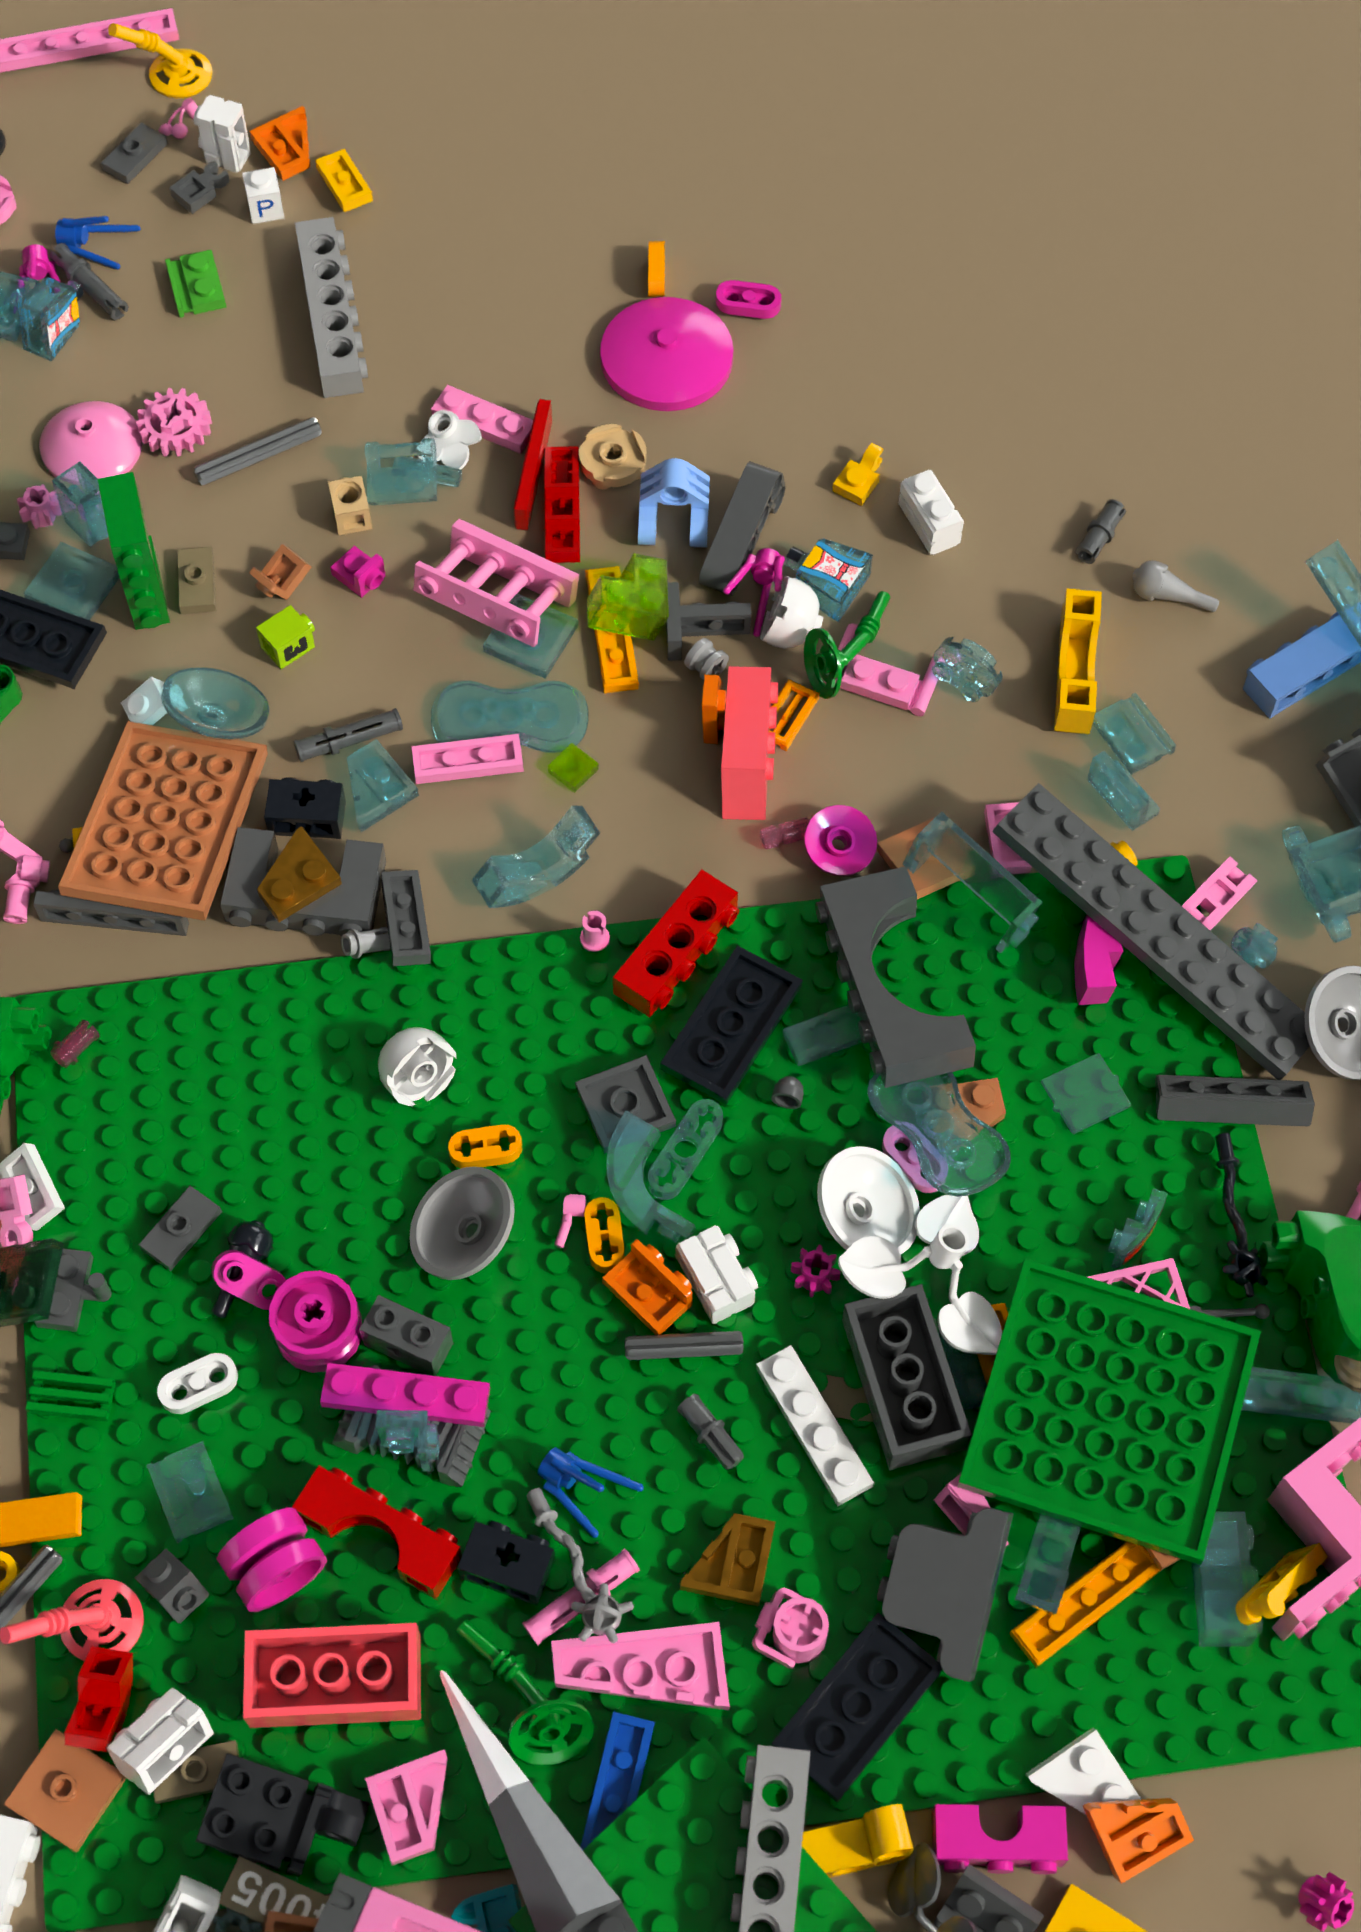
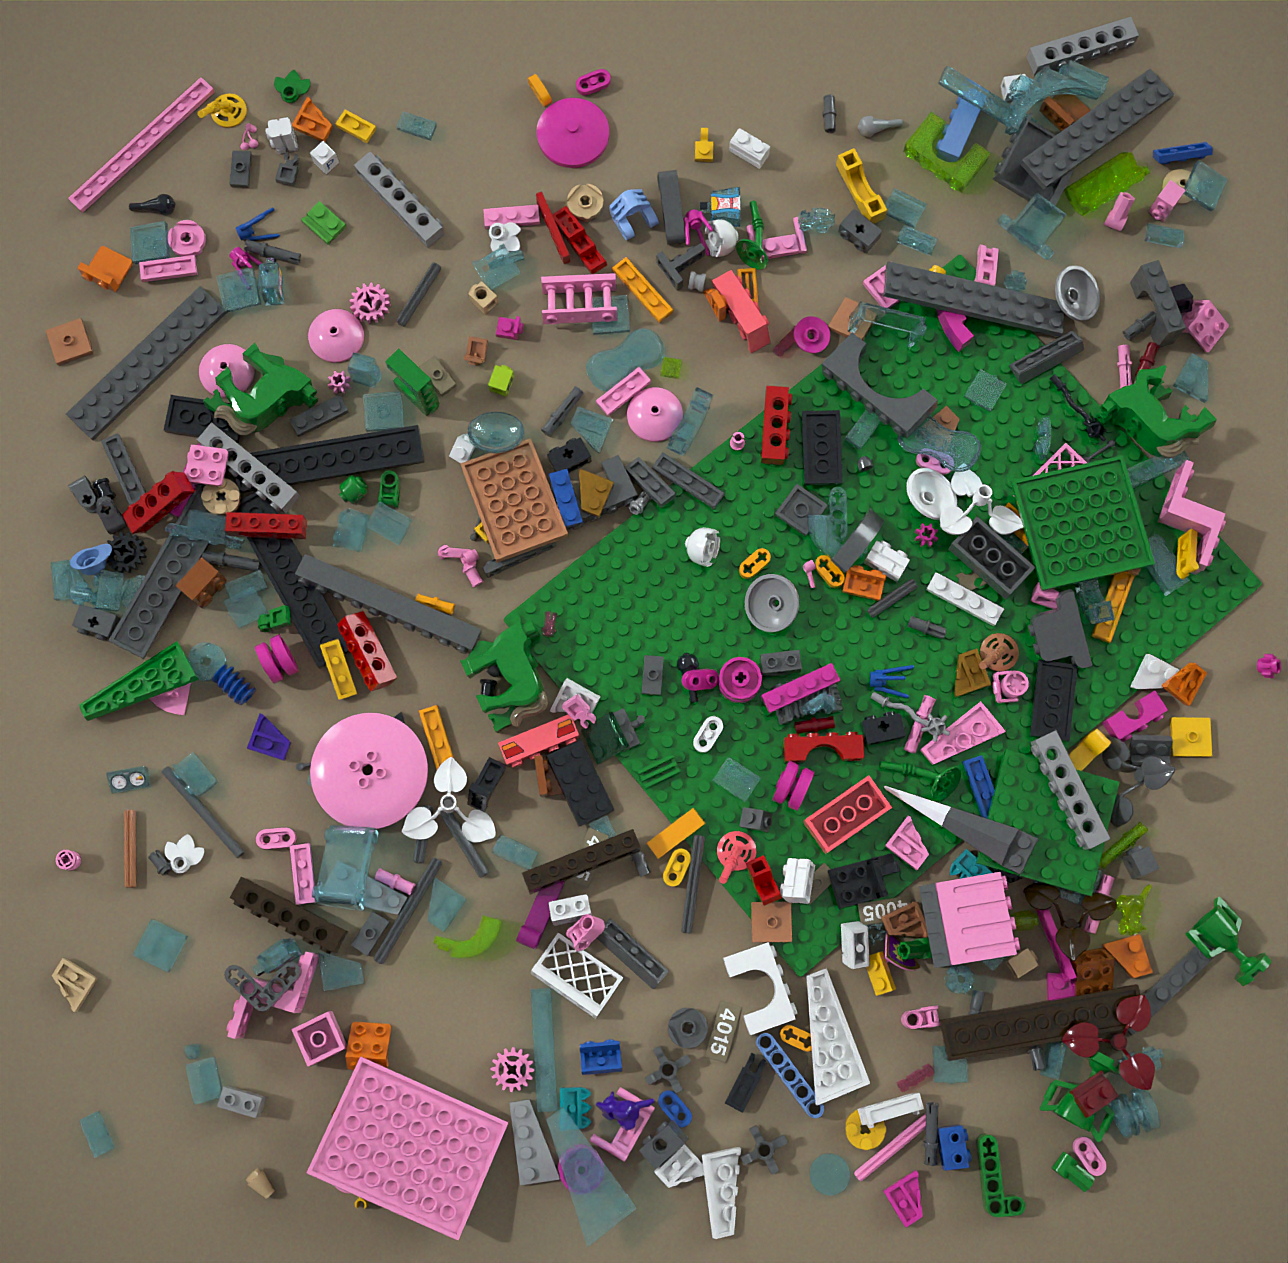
camera: 30 degrees left, 15 degrees up
(245, 860) = (565, 498): none -> blue plate
(293, 87) = (291, 85): none -> green plate
(392, 1481) = (814, 725): none -> dark red pin
(434, 224) = (416, 125): none -> clear light blue plate
(471, 952) = (688, 480): none -> dark grey tile
(476, 835) = (650, 425): none -> bright pink dish
(633, 602) = (649, 271): clear neon green brick -> none
(683, 1204) = (858, 540): none -> dark grey slope
(810, 1555) = (995, 655): none -> nougat dish
(1032, 728) = (859, 231): none -> dark grey brick
(1260, 728) = (957, 173): none -> clear neon green arch

